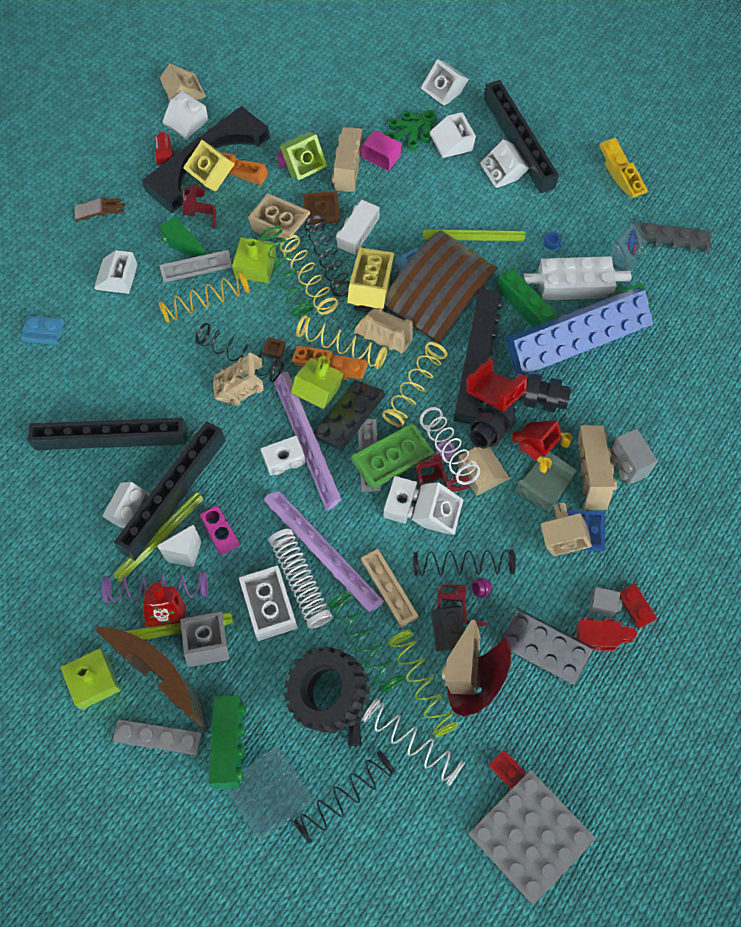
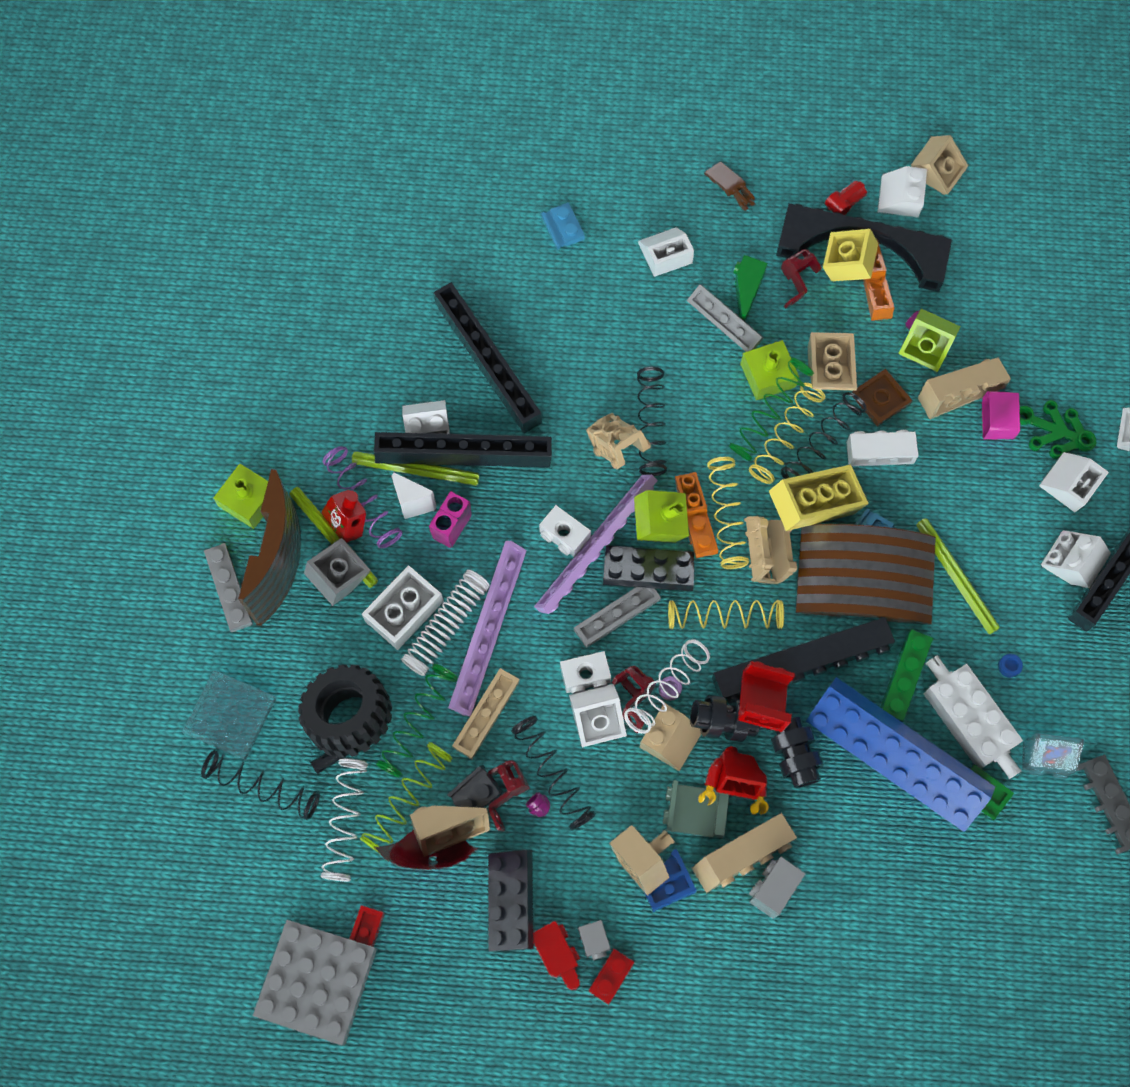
camera: 60 degrees right, 5 degrees up
(226, 742) = (252, 649): green brick -> none
(244, 284) = (737, 372): yellow piece -> none
(274, 348) = (679, 451): reddish brown plate -> none
(392, 456) = (627, 637): bright green plate -> none

